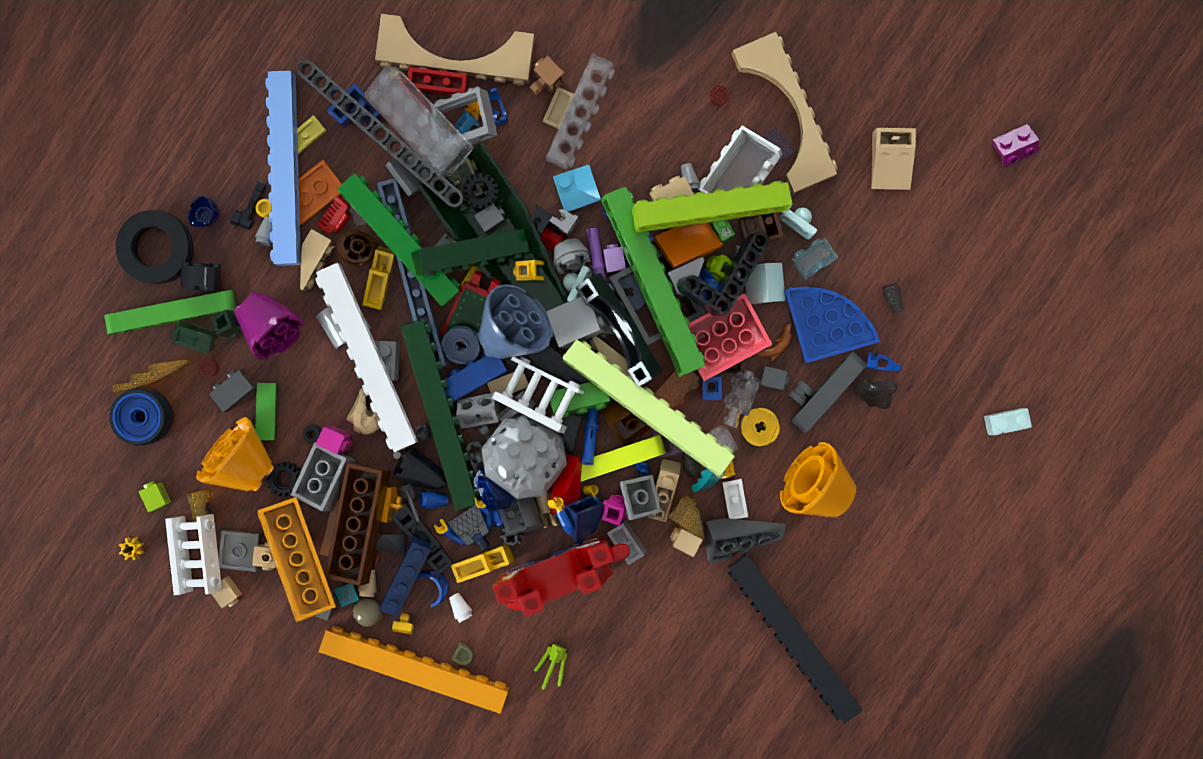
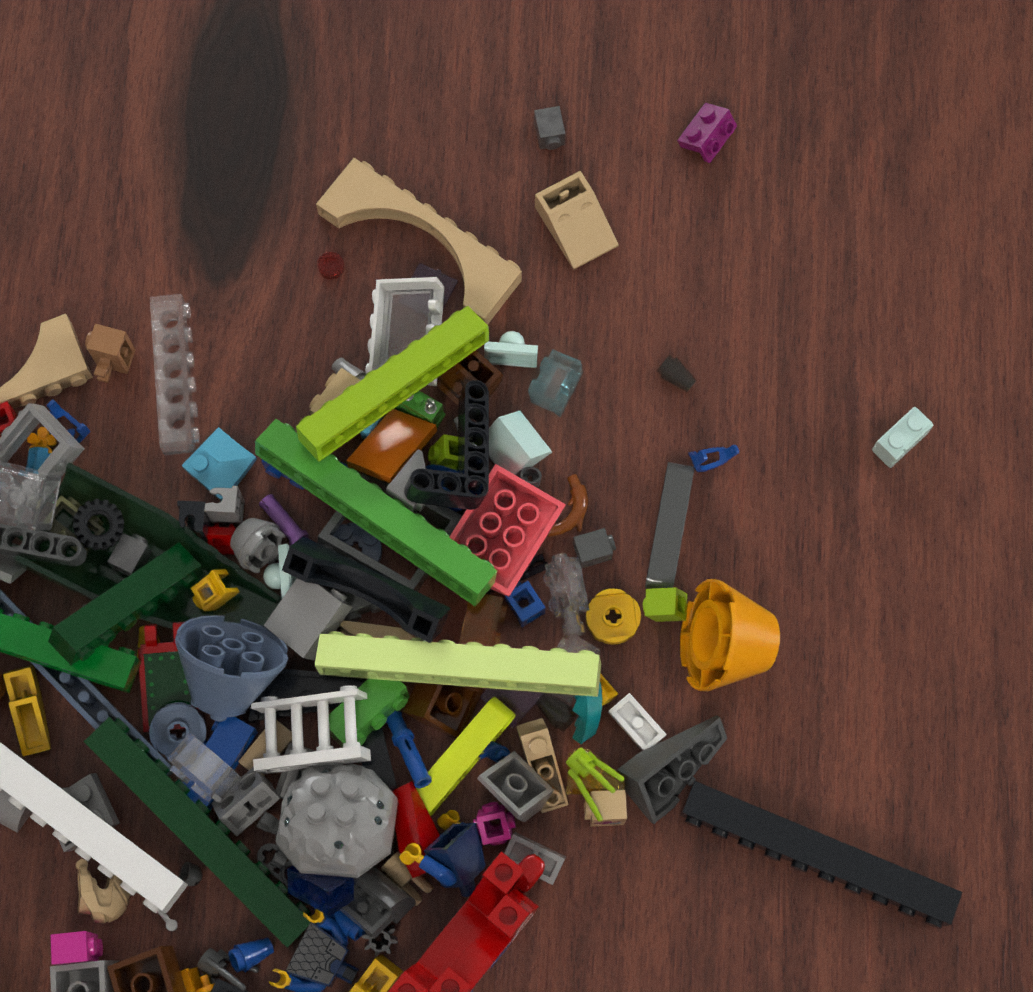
camera: 30 degrees left, 15 degrees down
(307, 436) = (34, 962): black plate -> none
(418, 470) = (211, 924): black cone -> none
(462, 381) = (199, 764): none -> clear brick
(557, 108) = (143, 385): tan tile -> none
(614, 258) = (311, 517): lavender brick -> none
(686, 513) = (584, 764): none -> lime plant
(765, 313) = (534, 472): none -> dark grey hinge
(795, 439) = (665, 604): none -> lime brick
(801, 393) = (637, 546): dark grey wheel -> none
(827, 323) = (617, 447): blue plate -> none
(876, 393) = (726, 494): clear smoke hair -> none
(914, 83) = (549, 128): none -> flat silver brick

